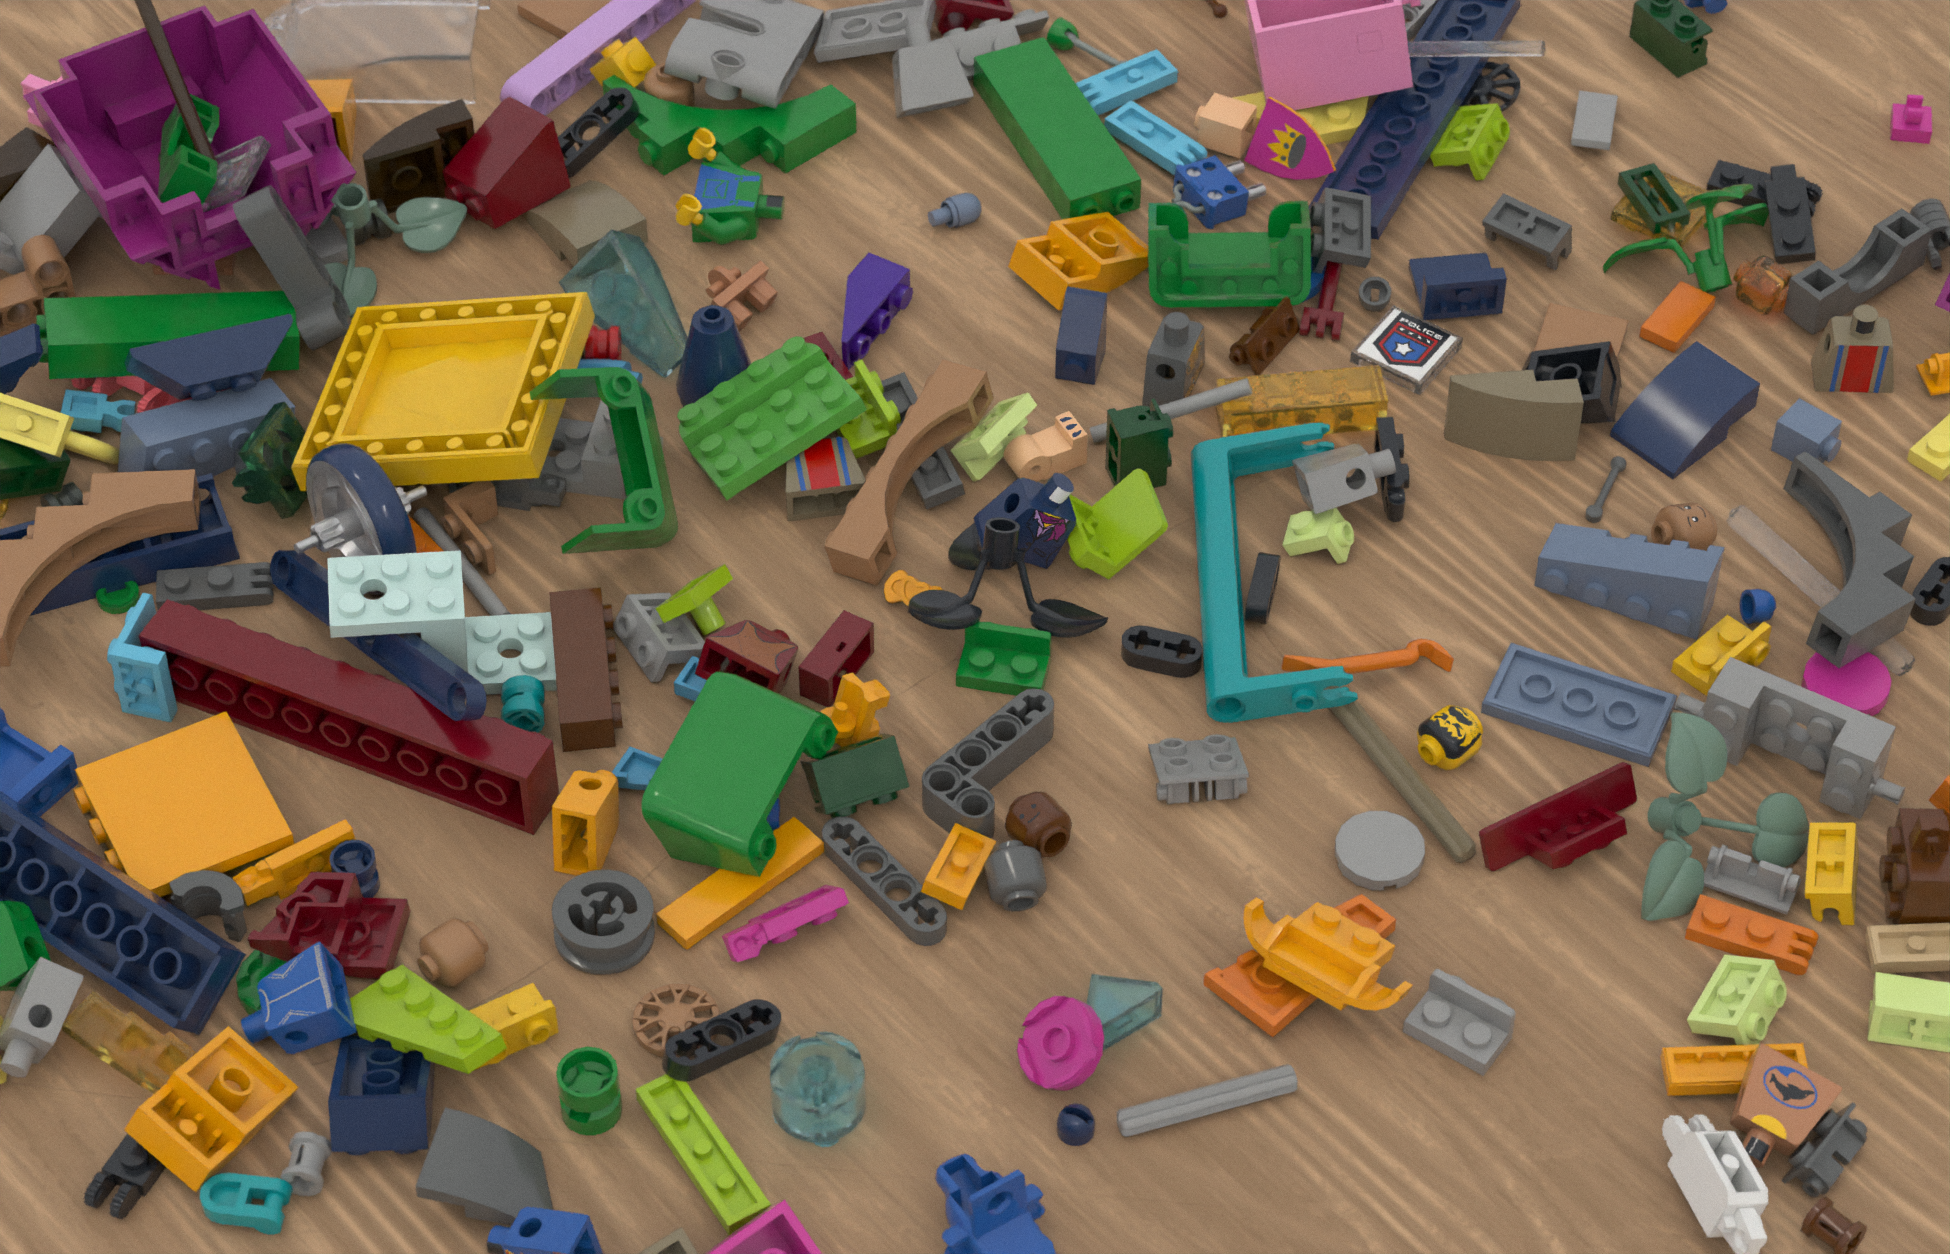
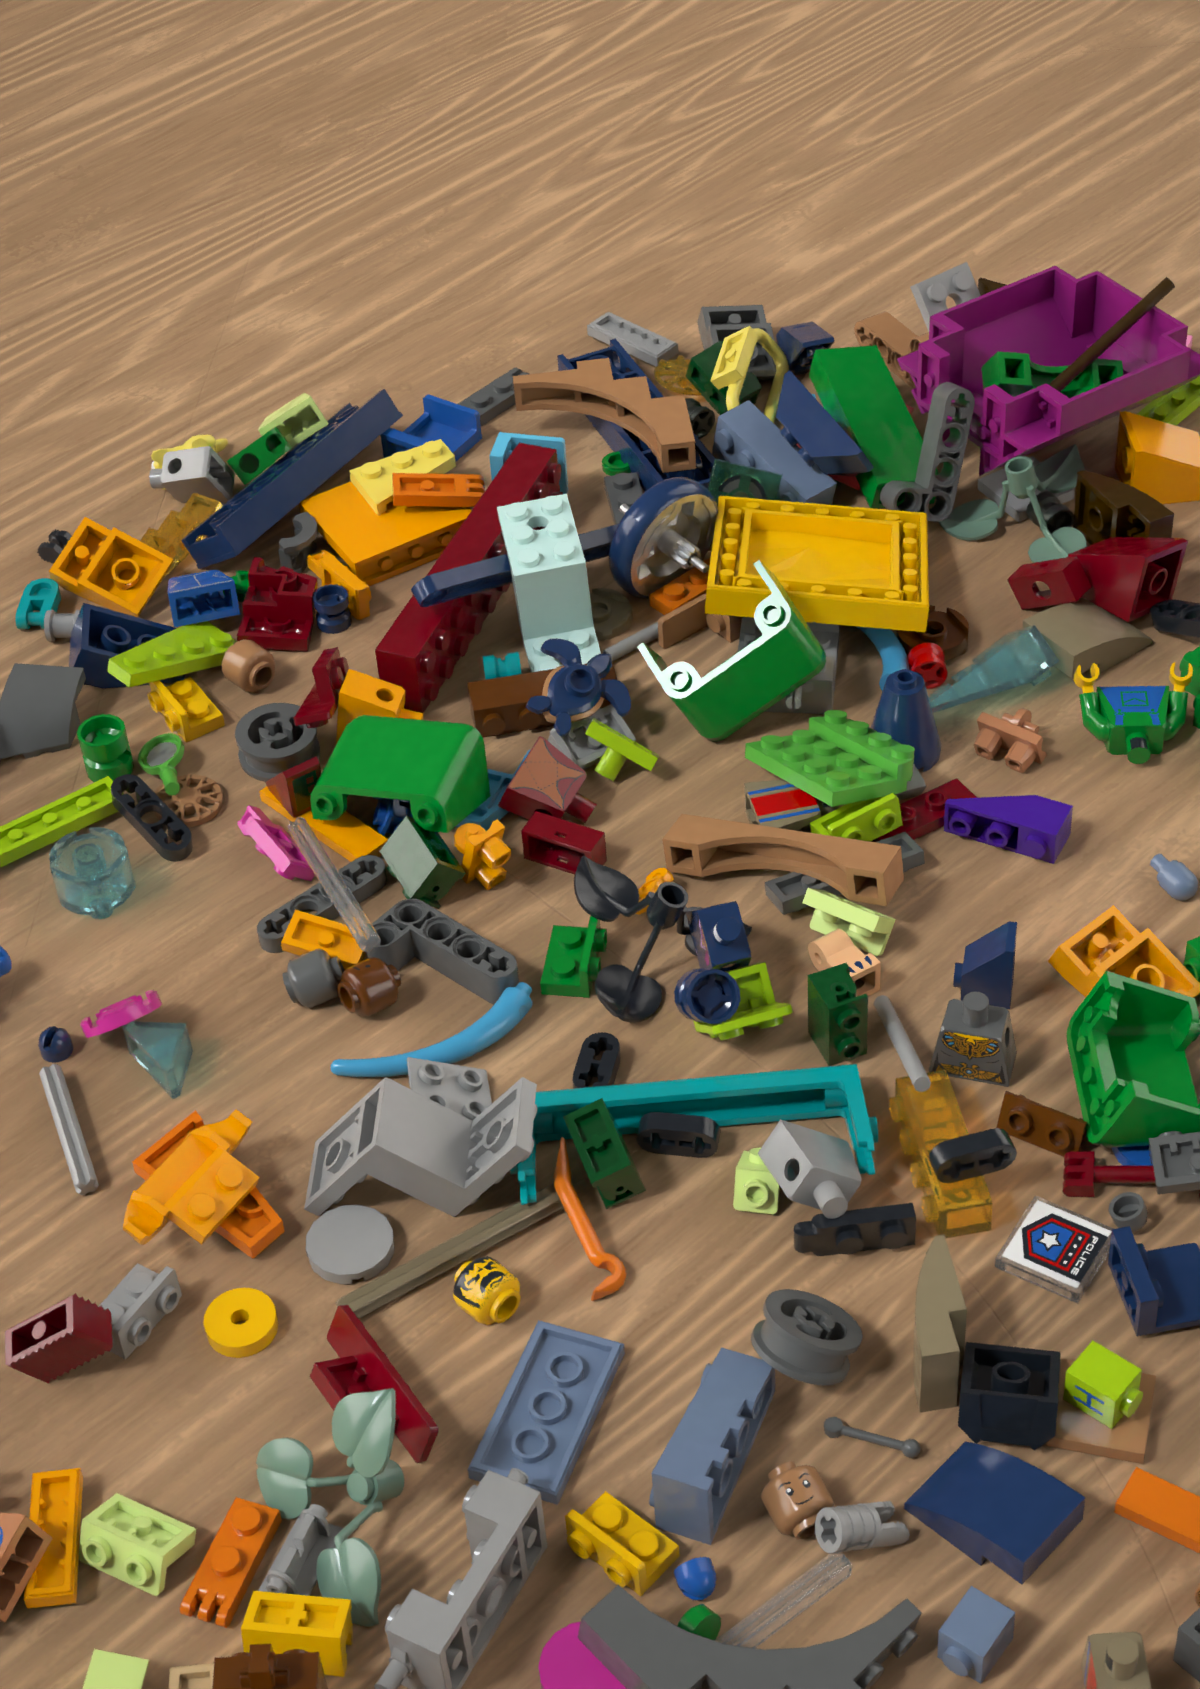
camera: 90 degrees right, 5 degrees down
(126, 780) = (375, 478): none -> light yellow wing
(185, 736) = (437, 489): none -> orange hinge
(496, 242) = (1062, 576): none -> dark red piece
(554, 850) = (324, 696): none -> dark red bracket
(613, 1032) = (161, 757): none -> bright green piece
(620, 608) = (576, 689): none -> dark blue animal
(703, 887) = (295, 786): none -> dark red slope
(880, 850) = (334, 885): none -> clear axle
(1103, 734) = (490, 1028): none -> dark azure animal
(1121, 526) = (707, 995): none -> dark blue wheel
(1296, 629) = (604, 1153): none -> dark green hinge
(1297, 763) = (422, 1147): none -> light grey bracket
(1341, 360) = (972, 1155): none -> black beam
(1470, 953) = (246, 1338): none -> yellow piece
(1525, 501) = (806, 1337): none -> dark grey wheel
(1527, 1056) = (59, 1338): none -> dark red brick
(1575, 320) = (1103, 1385): none -> lime brick
(1712, 491) = (858, 1527): none -> light grey hinge
(1808, 602) = (701, 1621): none -> green tile

